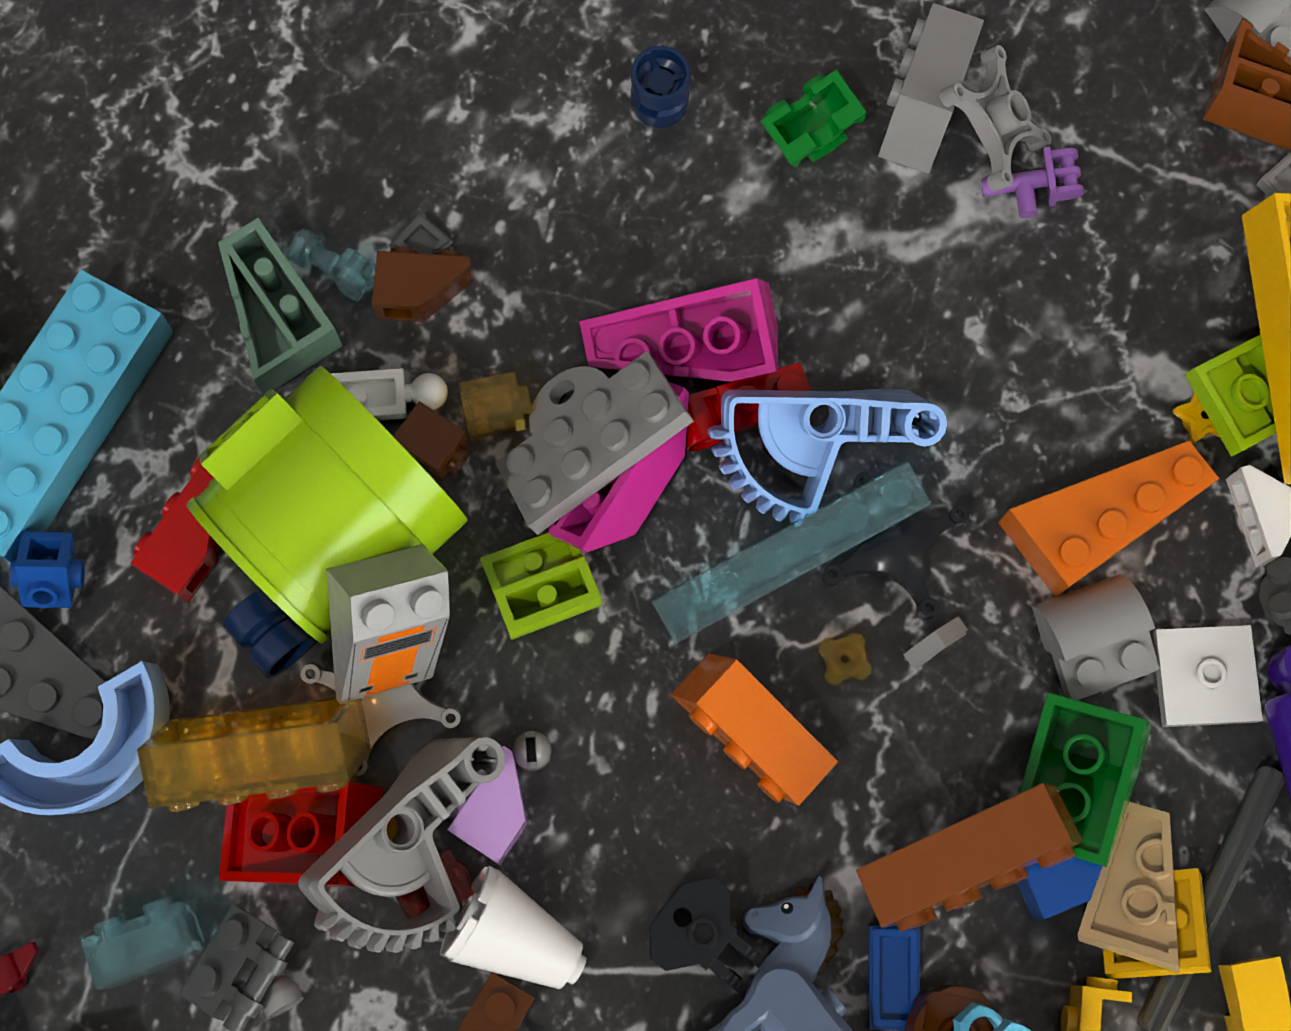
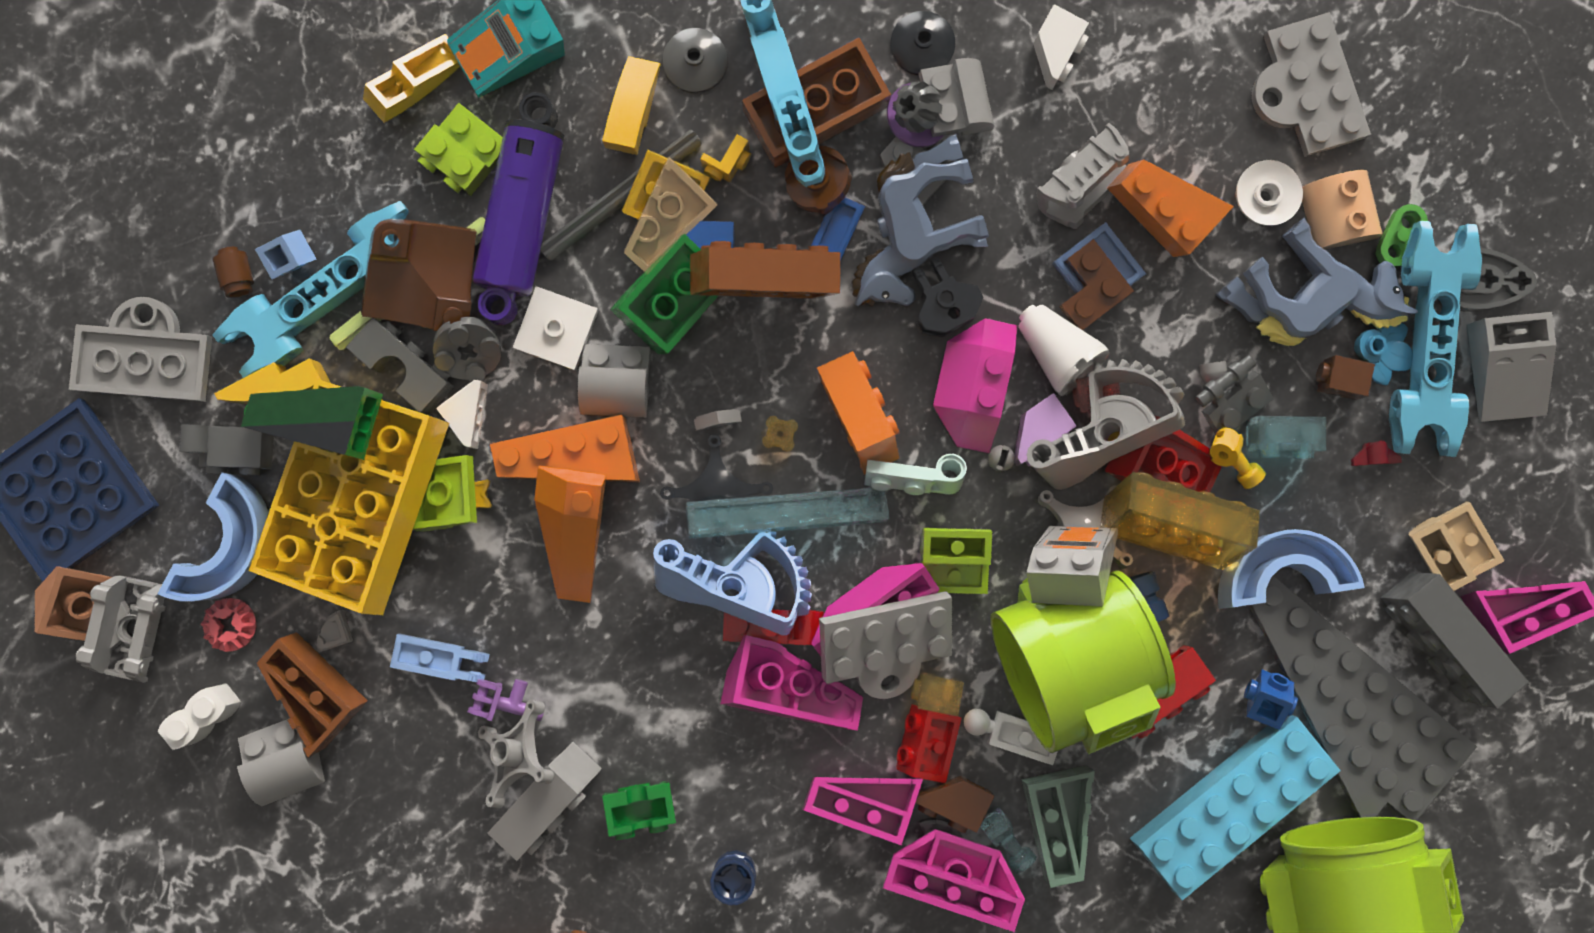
camera: 150 degrees left, 10 degrees up
(220, 883) = (1227, 452): none -> yellow leg
(380, 187) = (957, 878): none -> dark pink wedge
(433, 441) = (988, 684): reddish brown brick -> none
(480, 336) = (928, 744): none -> red bracket
(534, 232) = (866, 804): none -> dark pink wedge
(611, 841) = (975, 383): none -> dark pink wedge
(637, 667) = (917, 479): none -> light aqua plate
(1065, 426) = (570, 522): none -> orange wedge
(1145, 199) = (435, 658): none -> light blue hinge

